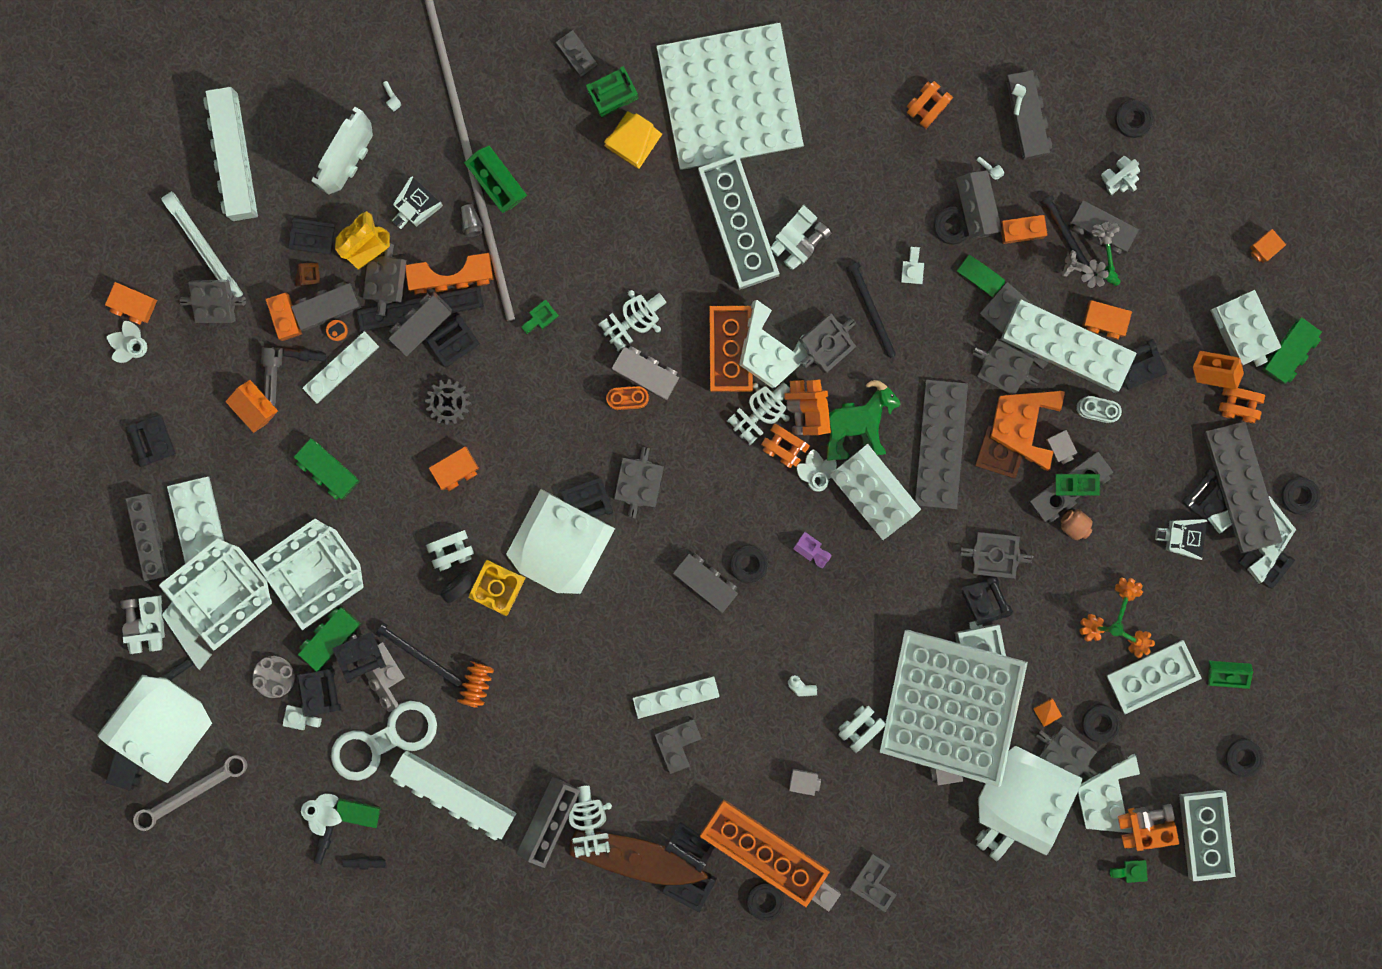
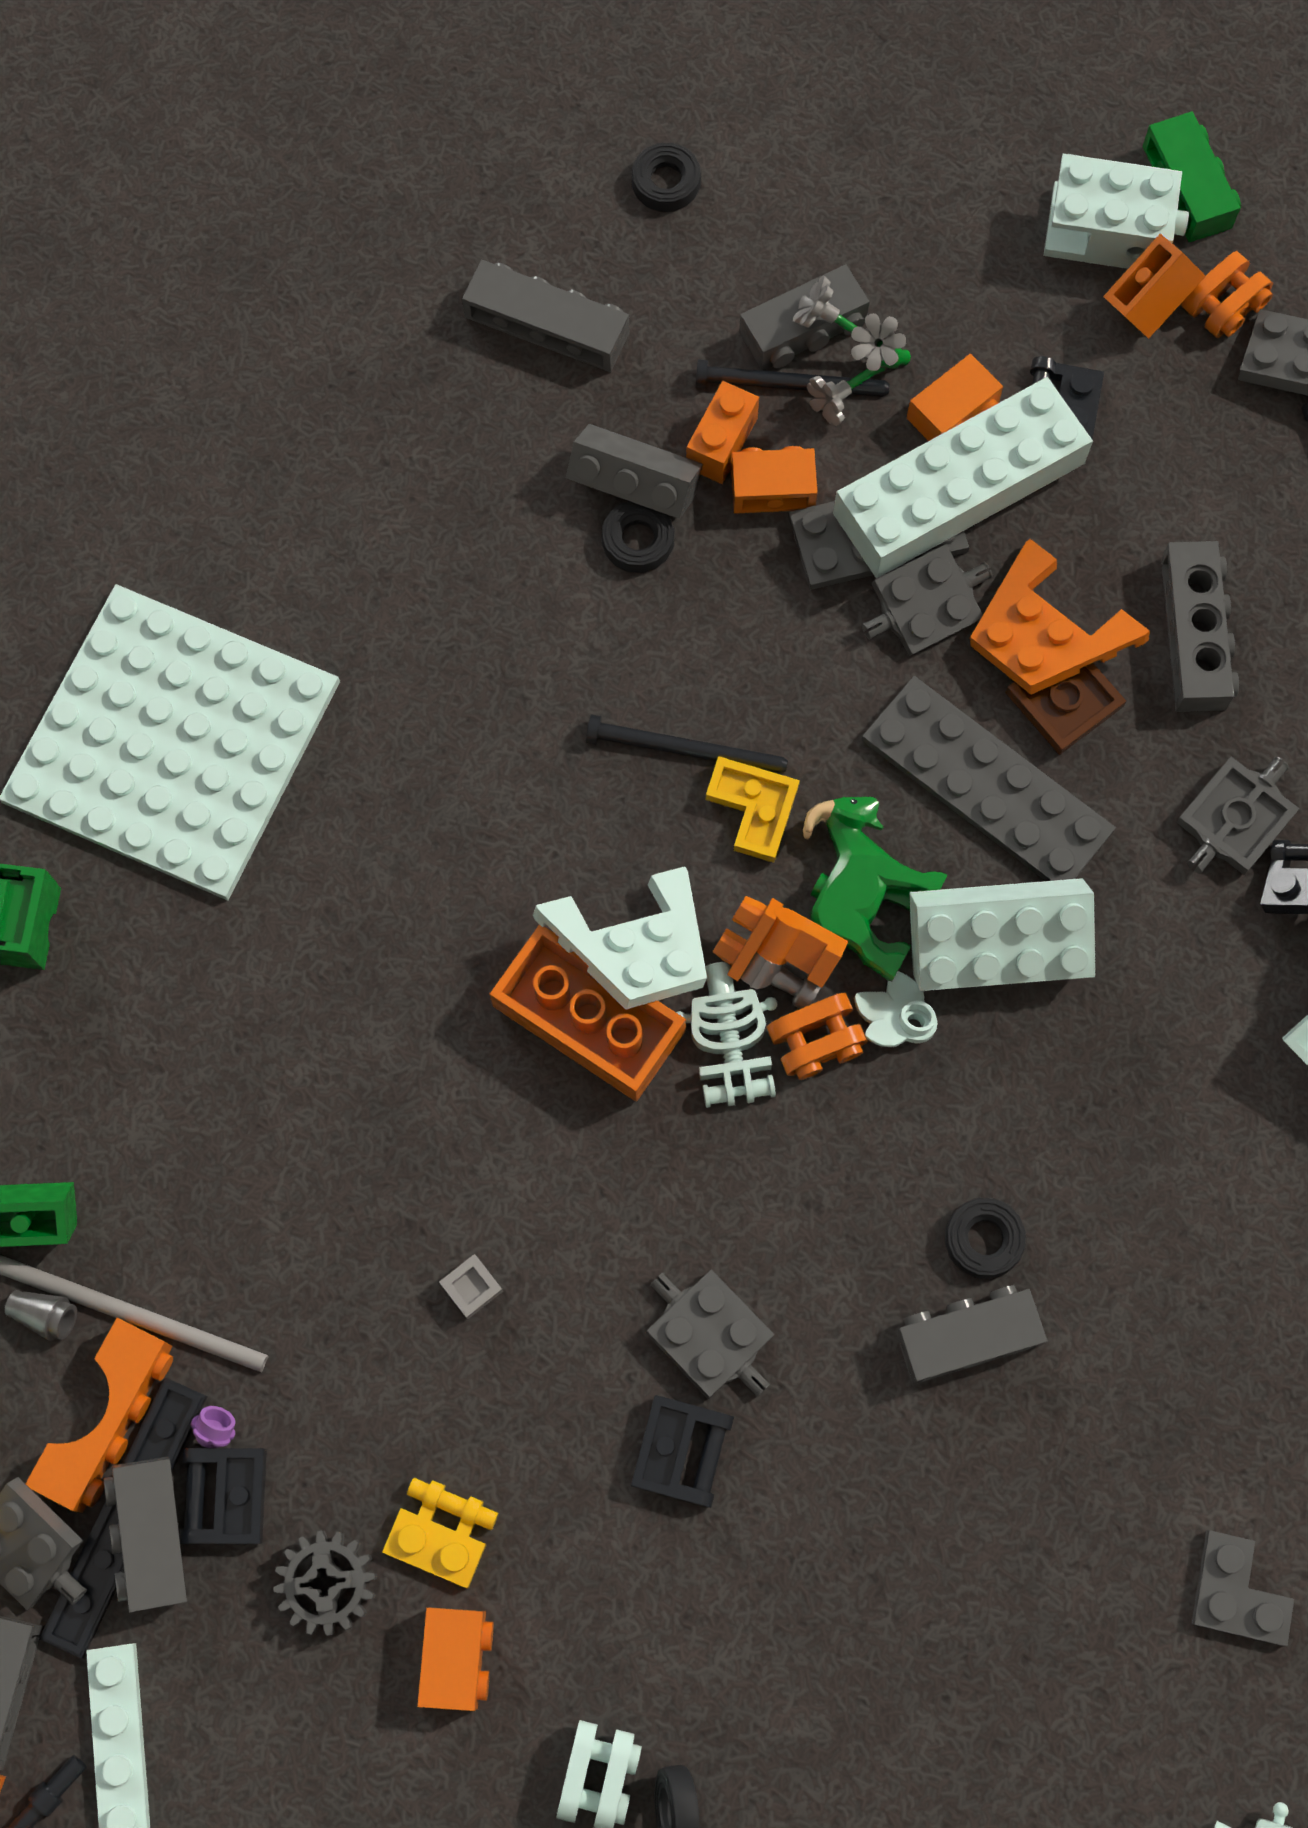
camera: 55 degrees left, 15 degrees down
(337, 330) = (47, 1702): tile -> none
(474, 318) = (213, 1427): none -> medium lavender plate
(489, 433) = (434, 1546): none -> yellow plate
(496, 587) = (728, 1735): yellow piece -> none
(541, 315) = (295, 1302): green plate -> none
(558, 544) = (724, 1560): light aqua wedge -> none
(593, 378) = (471, 1286): none -> light grey plate
(627, 398) = (547, 1248): orange brick -> none
(633, 139) = (117, 937): yellow piece -> none
(646, 372) = (526, 1186): light grey brick -> none
(650, 307) = (417, 1103): light aqua torso -> none
(676, 697) = (1146, 1536): light aqua plate -> none
(738, 222) = (383, 857): light aqua brick -> none
(795, 242) = (486, 792): light aqua hips -> none
(800, 688) = (1269, 1298): light aqua arm -> none
(810, 548) = (1028, 1113): medium lavender plate -> none
(827, 343) = (691, 849): dark grey plate -> none
(871, 355) = (763, 798): none -> yellow plate
(912, 271) = (664, 642): light aqua plate -> none
(929, 91) = (399, 434): orange brick -> none
(981, 276) = (751, 543): green slope -> none
(995, 172) = (600, 416): light aqua hand -> none
(1017, 265) = (773, 479): none -> orange brick
(1019, 91) = (500, 292): light aqua hand -> none
(1061, 447) = (1117, 591): light grey brick -> none
(1076, 524) = (1267, 656): nougat head -> none
(1077, 484) = (1206, 603): green slope -> none
(1099, 409) = (1096, 503): light aqua brick -> none
(1124, 179) = (740, 230): light aqua hips -> none
(1267, 246) = (1001, 112): orange brick -> none

